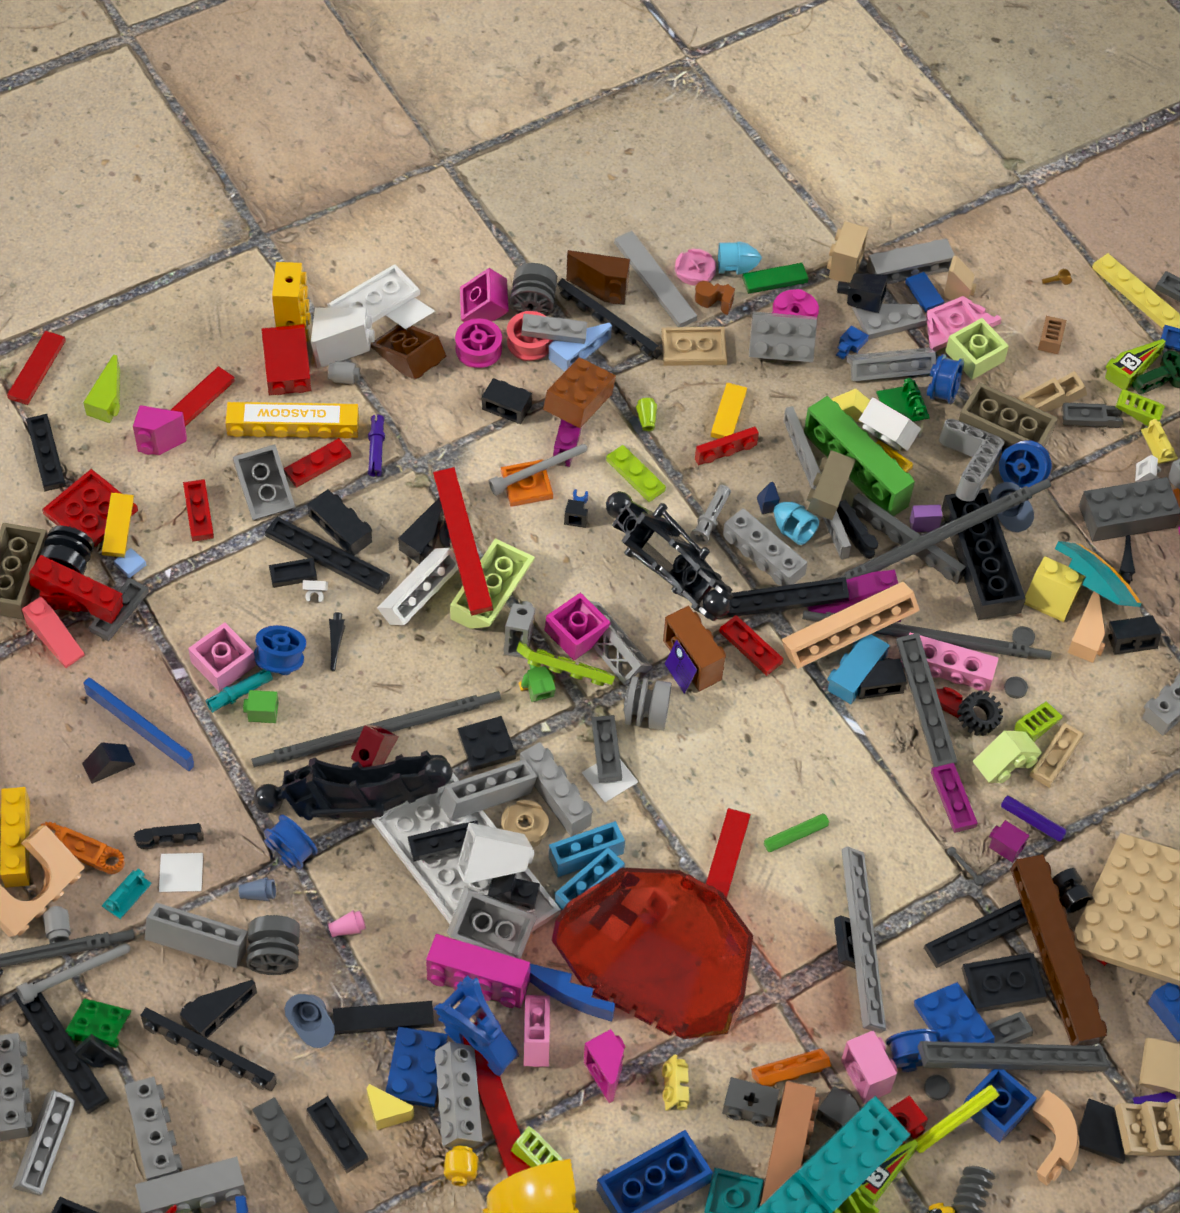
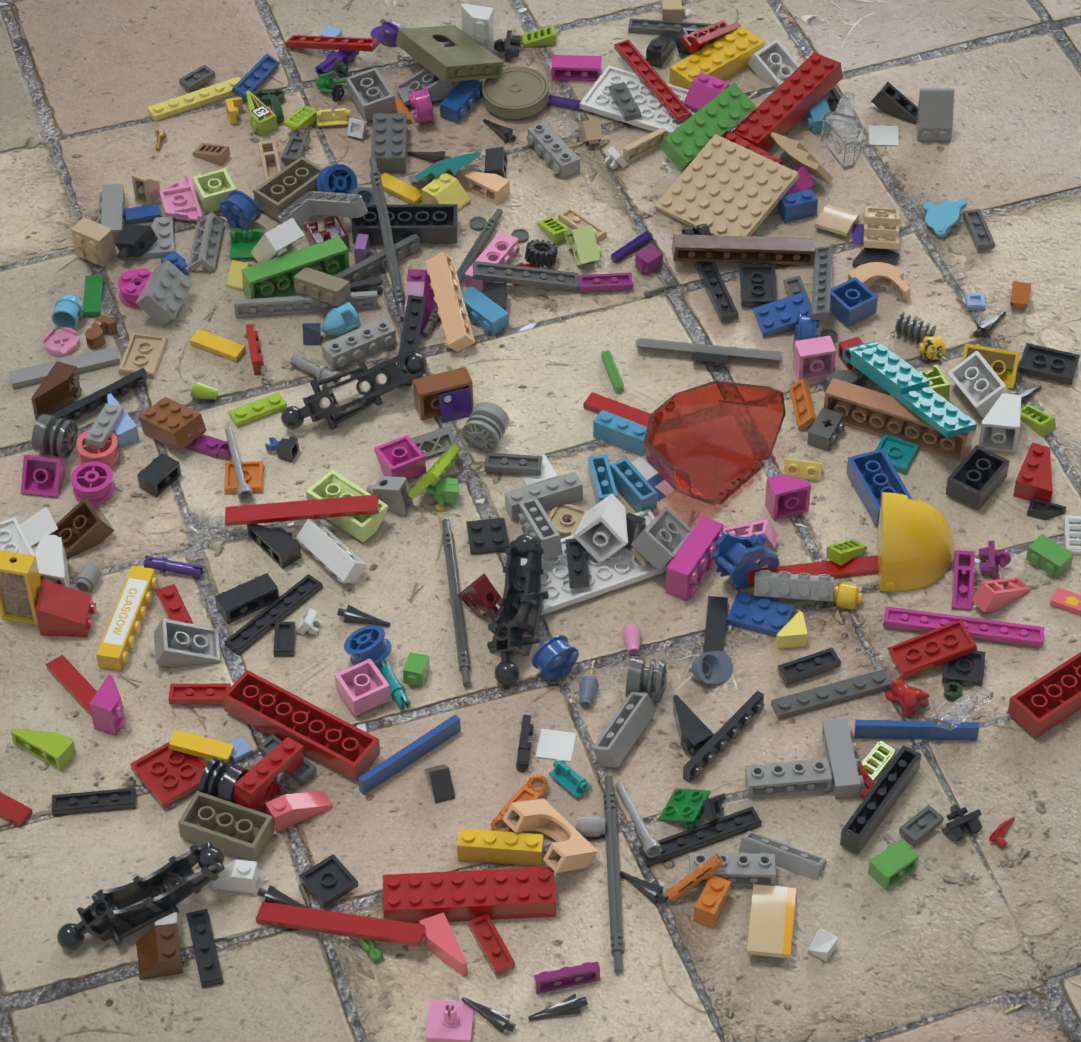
camera: 75 degrees left, 10 degrees down
(159, 610) = (287, 715): none -> red brick
(559, 986) = (726, 506): blue slope -> none
(686, 846) = (620, 432): none -> dark azure brick
(751, 645) = (454, 361): red plate -> none
(935, 477) = (331, 231): none -> dark red piece
(956, 1118) = (860, 315): neon yellow axle -> none
(1059, 530) = (401, 189): none -> yellow tile
(1131, 335) = (233, 107): none -> yellow bracket

